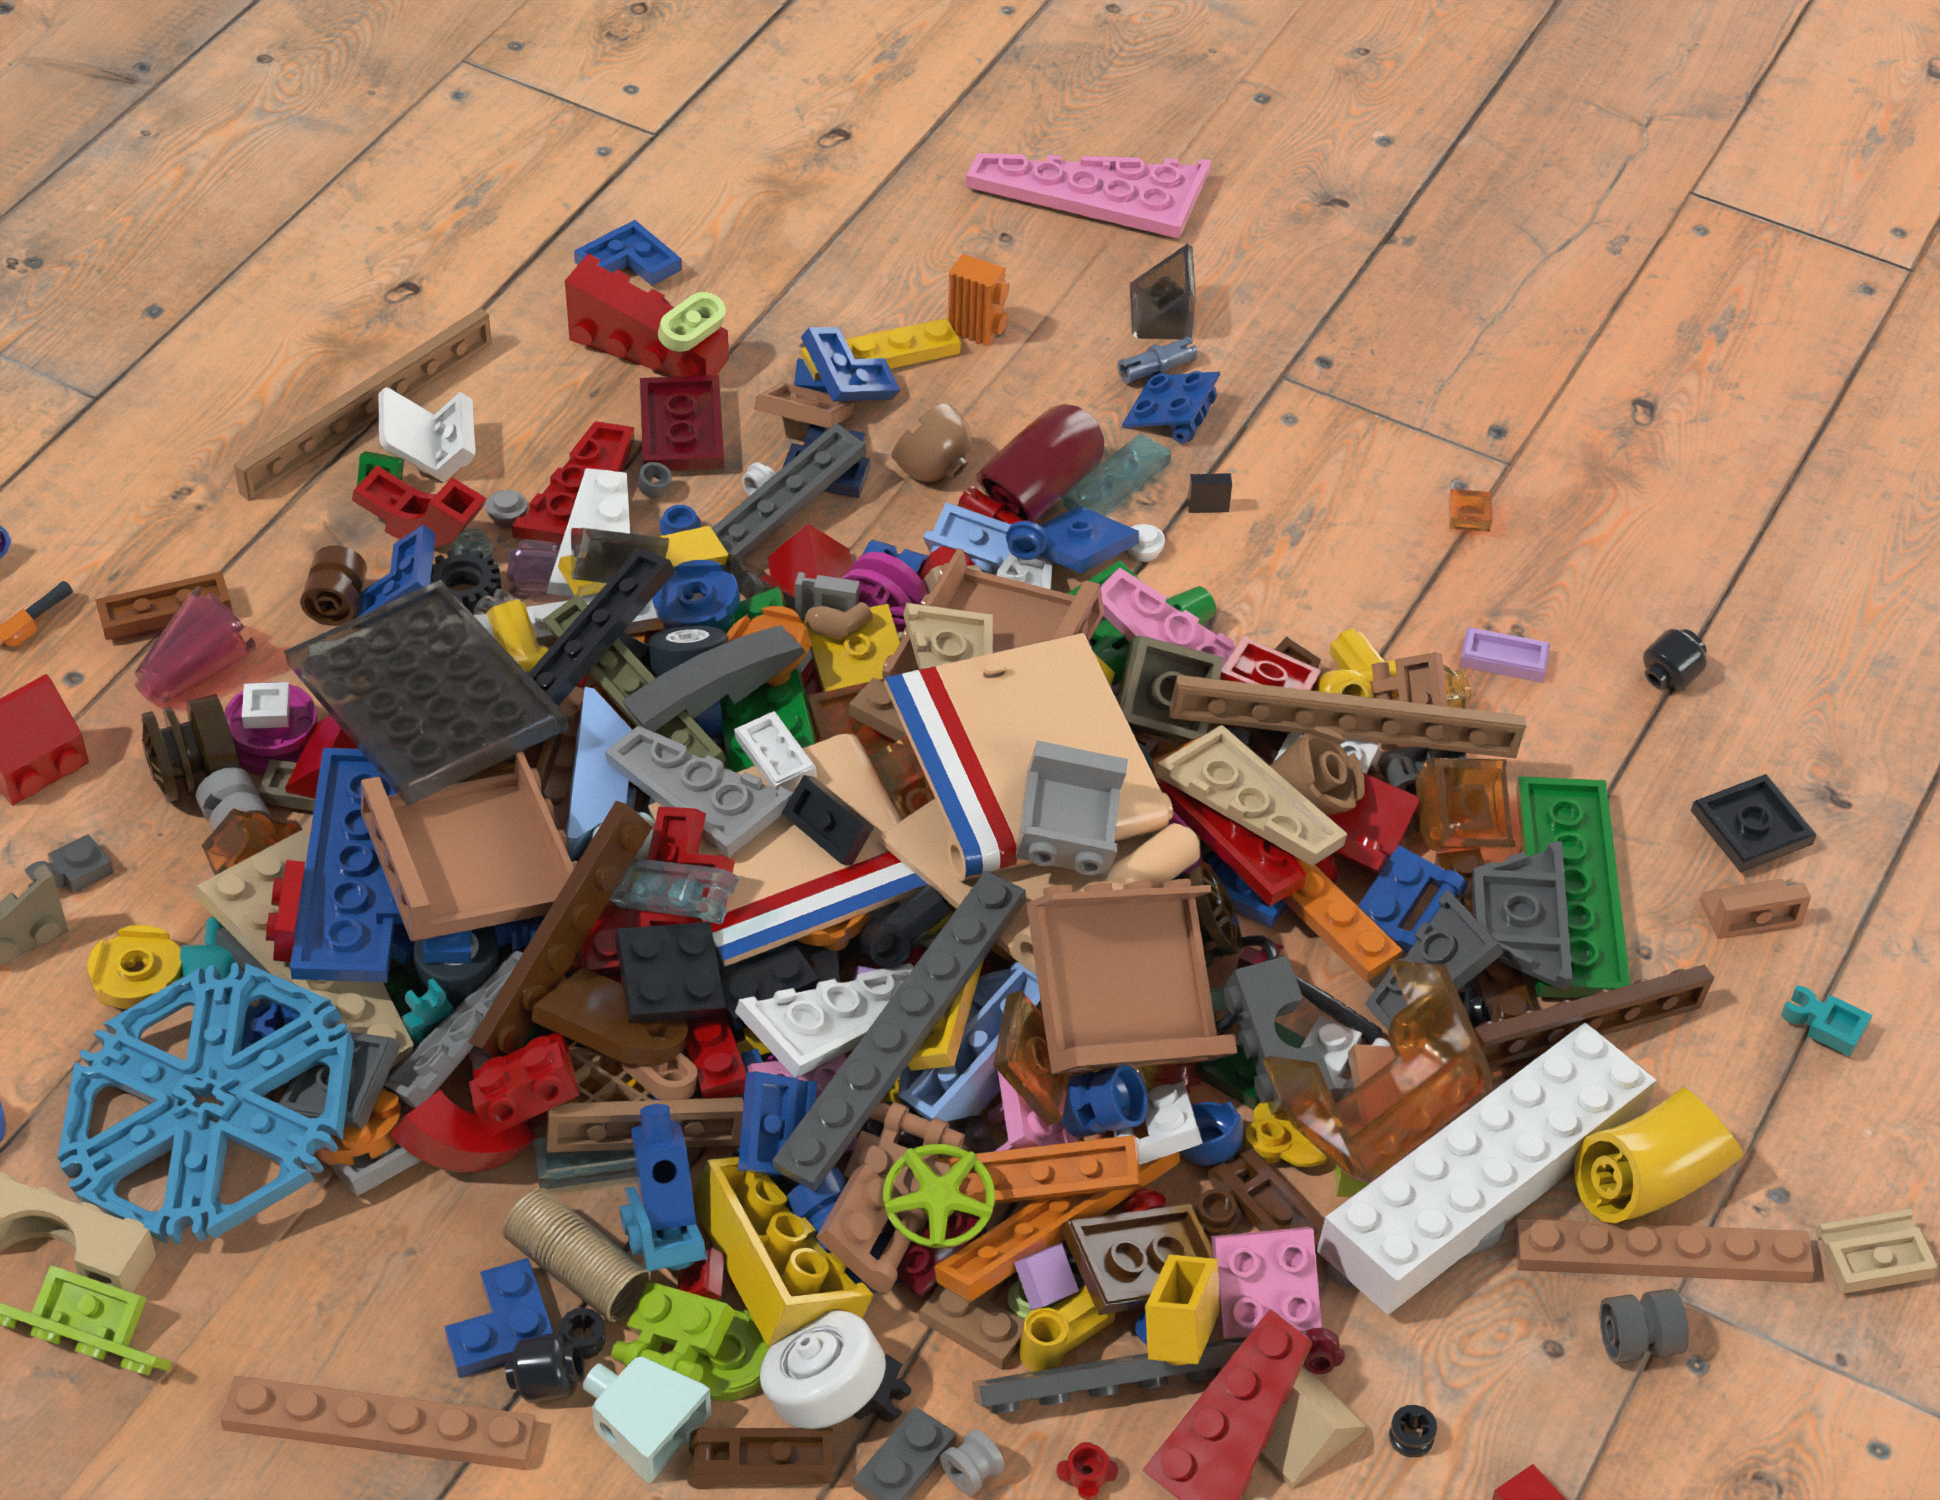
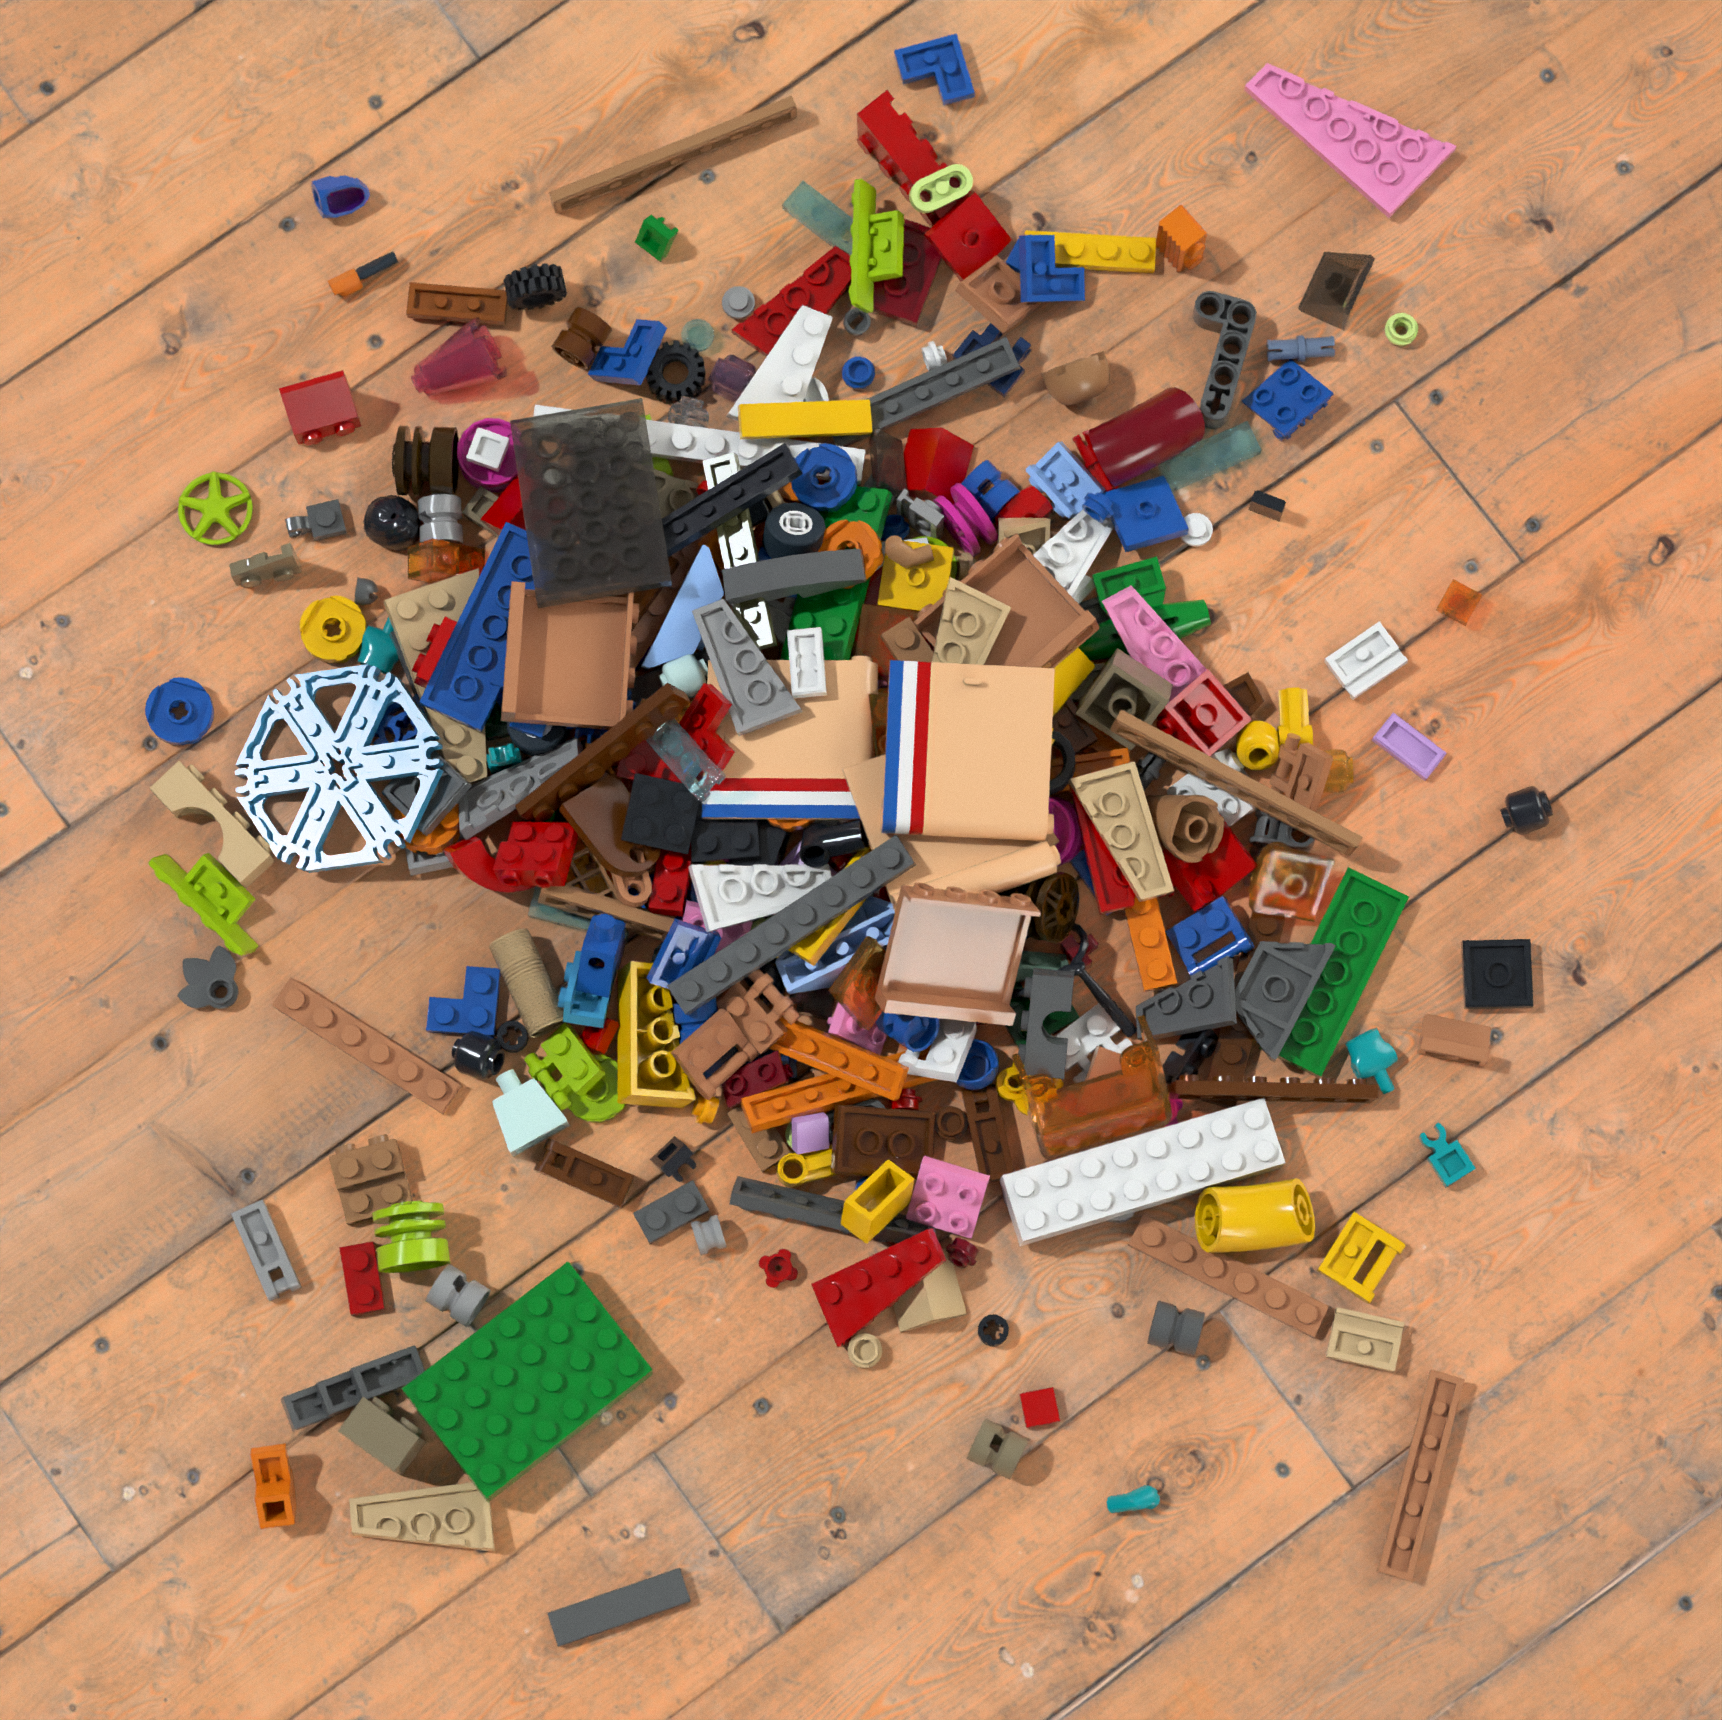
camera: 30 degrees right, 30 degrees up
(109, 1428) = (207, 977): none -> dark grey plate
(159, 914) = (365, 591): none -> dark grey hinge
(169, 834) = (392, 522): none -> black hair
(243, 540) = (535, 286): none -> black tyre
(410, 508) = (667, 288): red arch -> none
(429, 441) = (703, 211): white bracket -> none
(515, 633) = (680, 478): yellow piece -> none
(569, 409) = (819, 216): none -> clear light blue plate
(601, 553) = (780, 417): clear smoke slope -> none
(646, 397) = (875, 245): none -> lime bracket
(740, 367) = (968, 236): none -> red plate
(823, 1371) = (643, 1137): white wheel -> none
(828, 820) = (813, 741): black plate -> none
(888, 1314) = (705, 1109): none -> light orange plate
(939, 1194) = (762, 1054): lime wheel -> none
(1071, 808) = (968, 821): light grey panel -> none
(1077, 359) = (1223, 363): none -> dark grey beam
(1252, 314) = (1406, 321): none -> yellowish green plate
(1406, 591) = (1365, 660): none -> white plate
(1671, 949) = (1372, 1057): none -> teal piece
(1792, 1164) = (1350, 1252): none -> yellow plate

